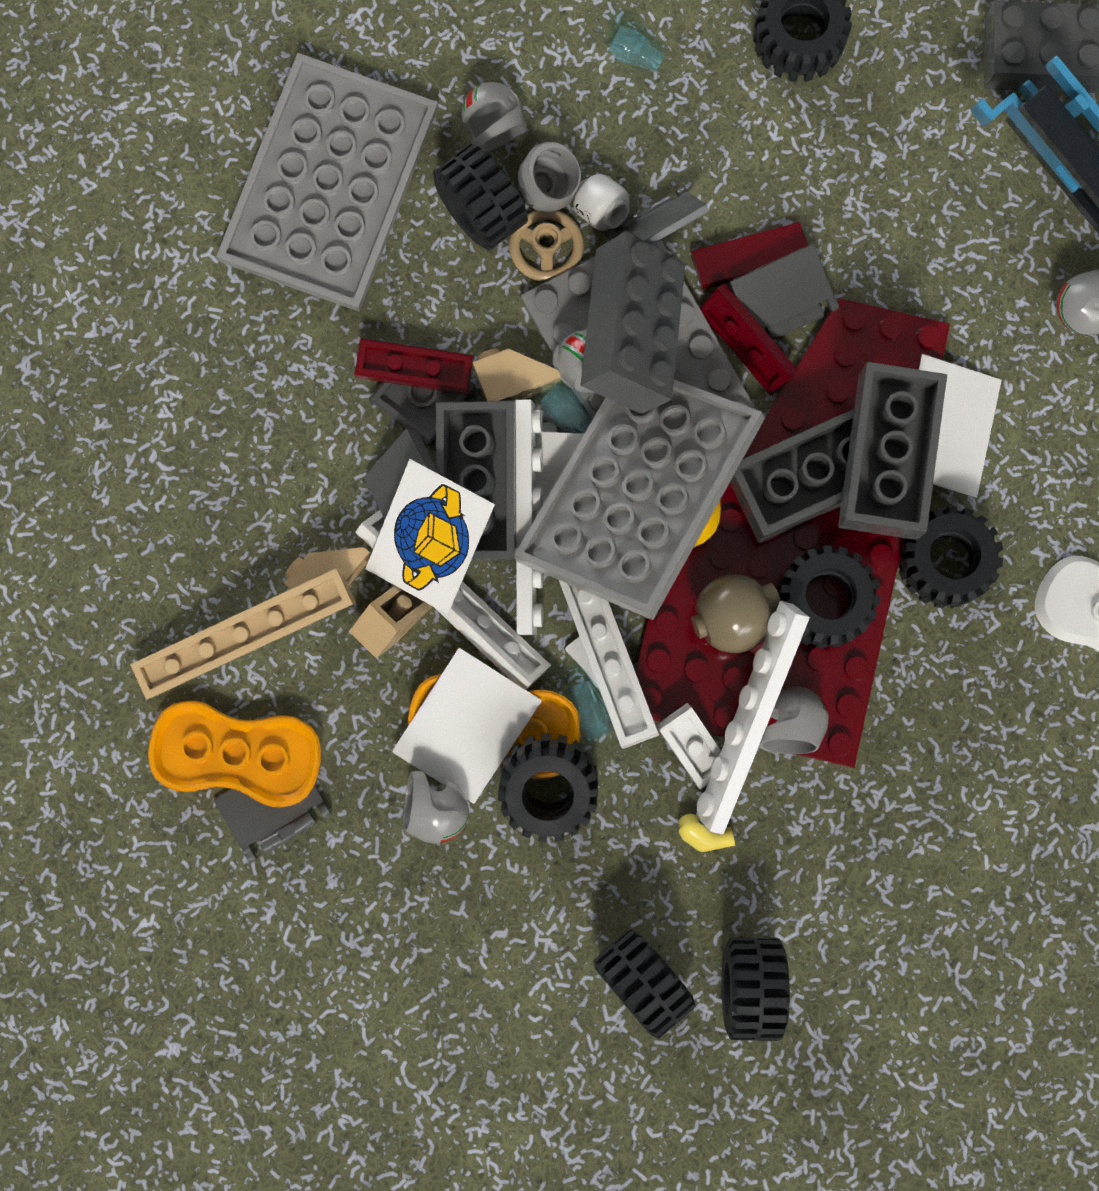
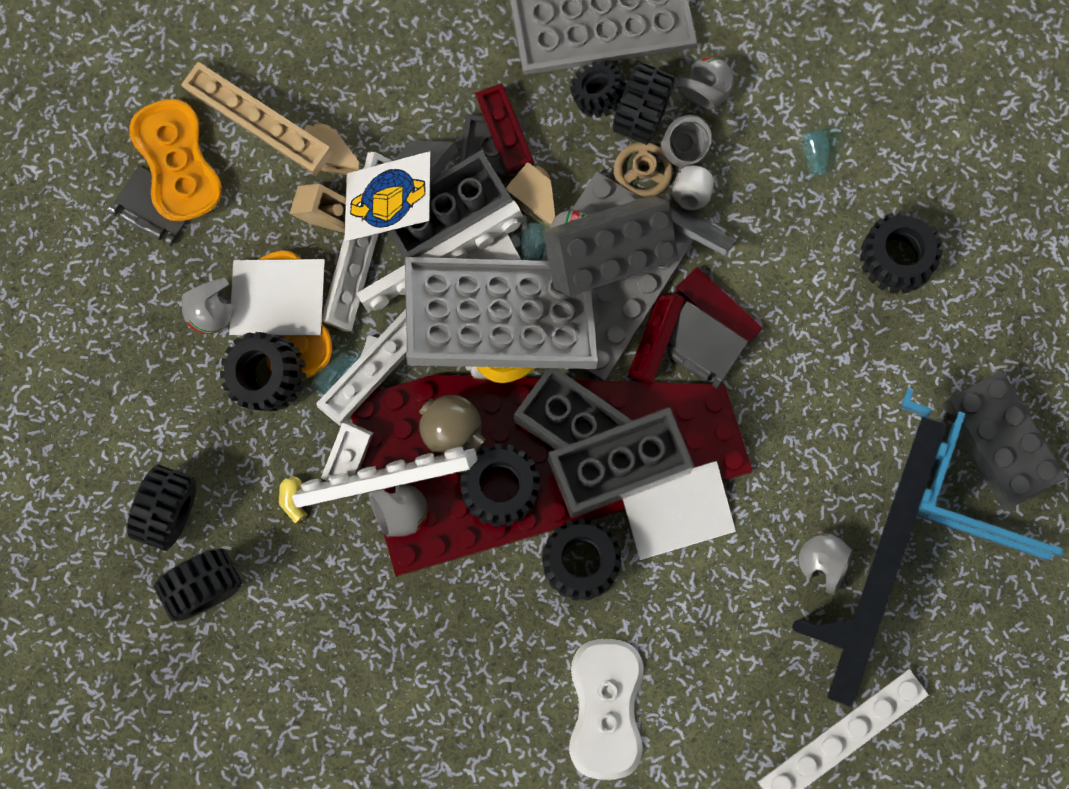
camera: 60 degrees right, 5 degrees down
(412, 231) = (591, 79): none -> black tyre

